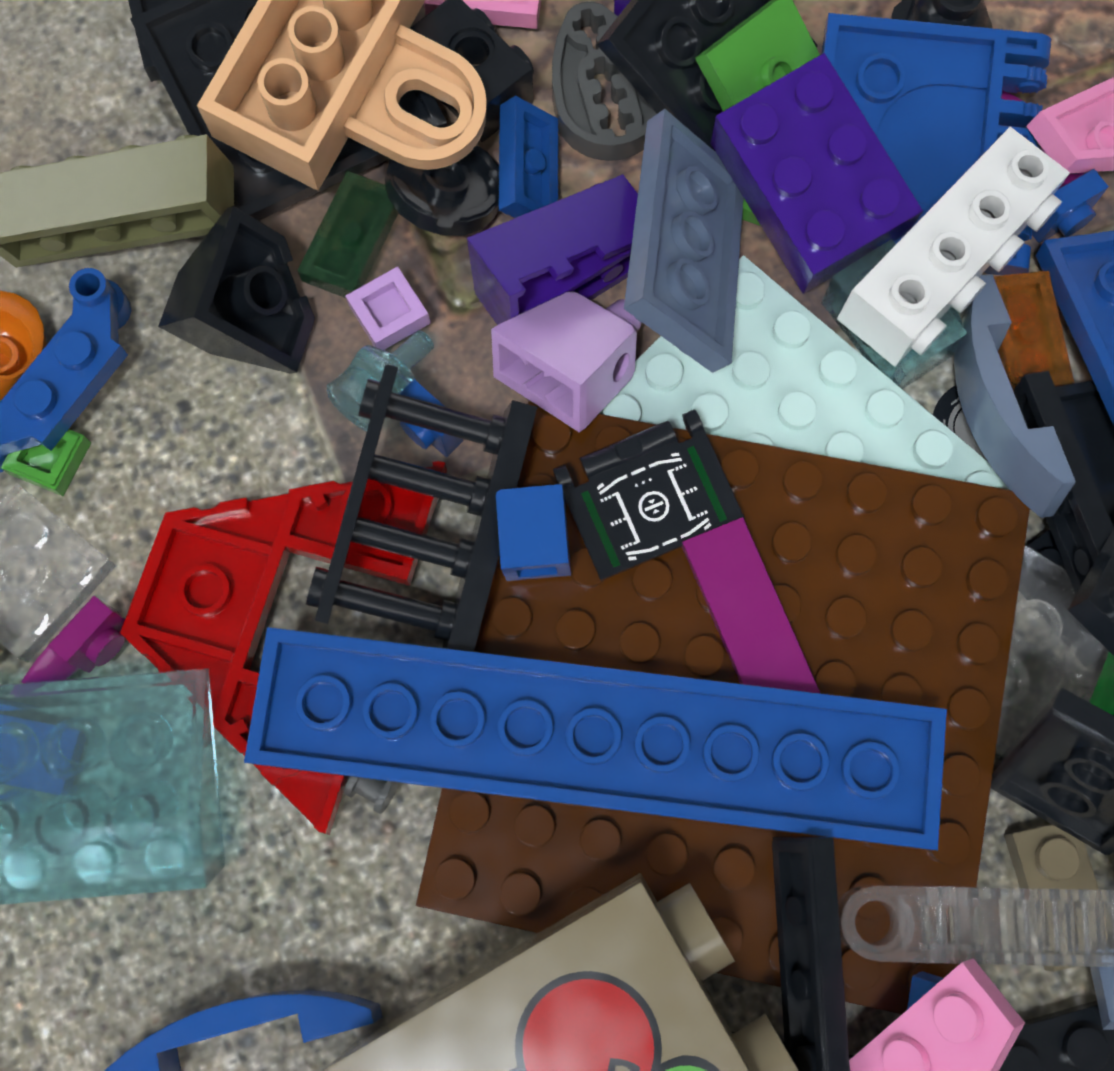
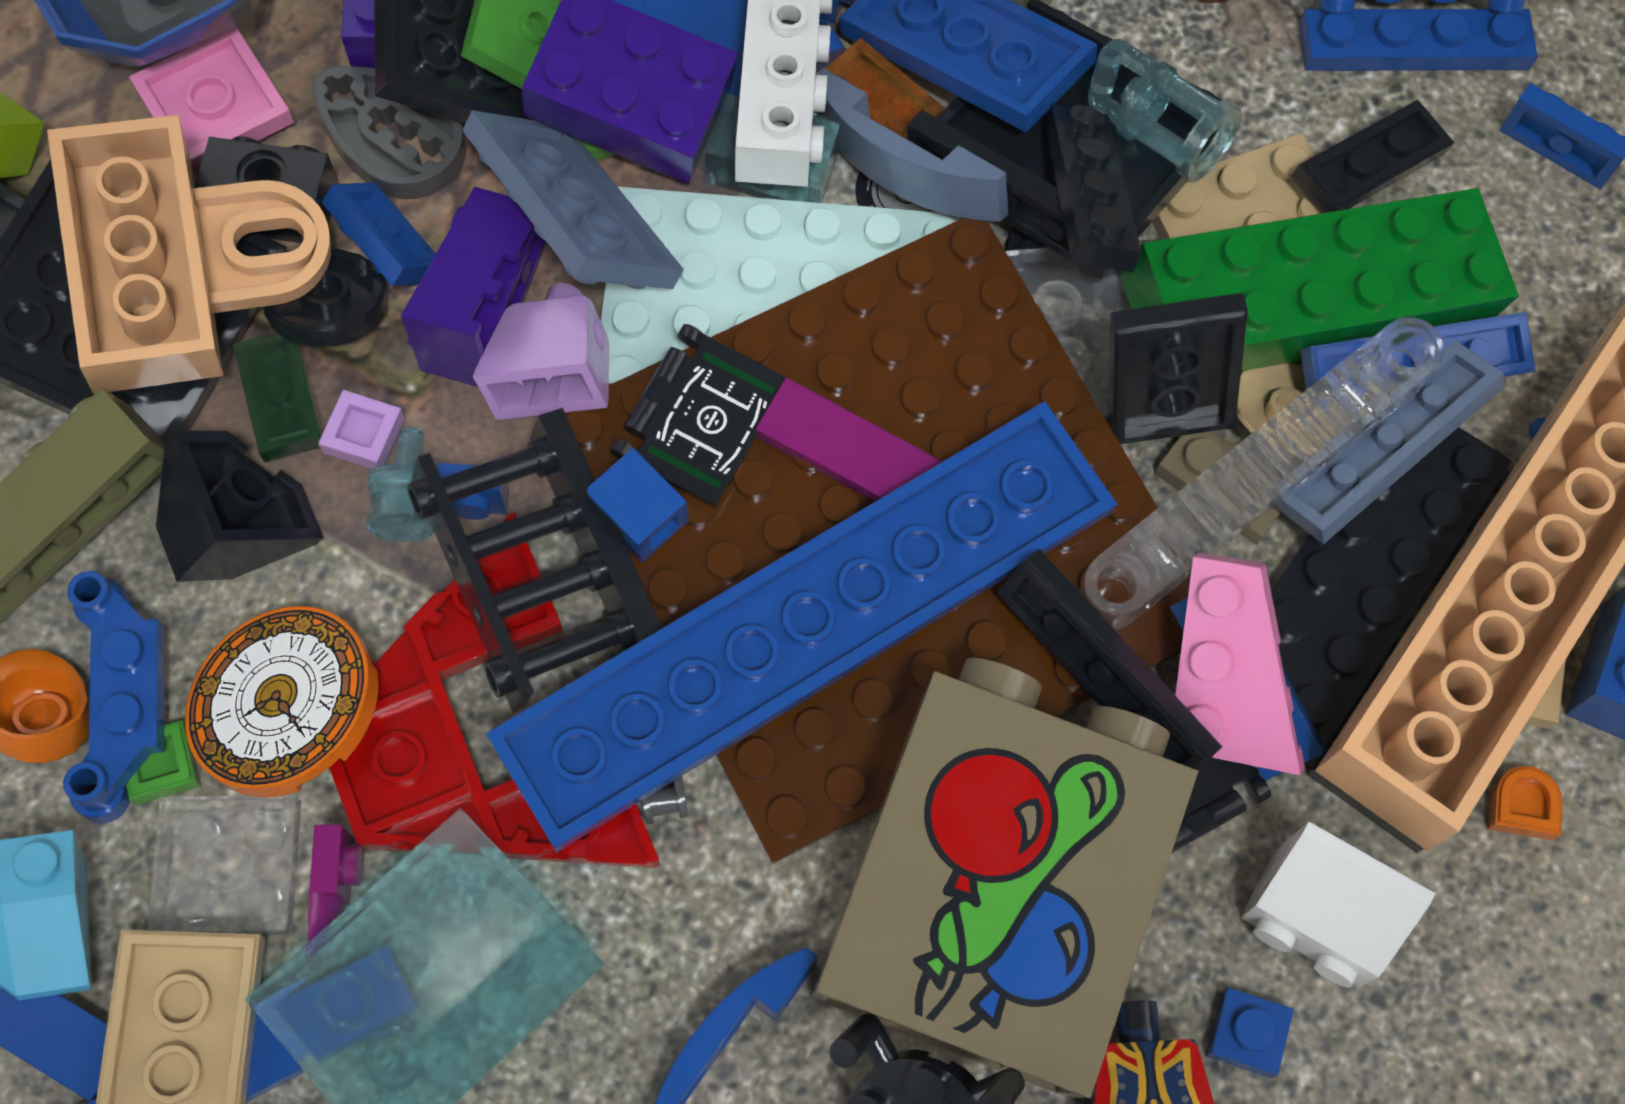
camera: 45 degrees left, 5 degrees down
(156, 478) = (281, 701): none -> tile

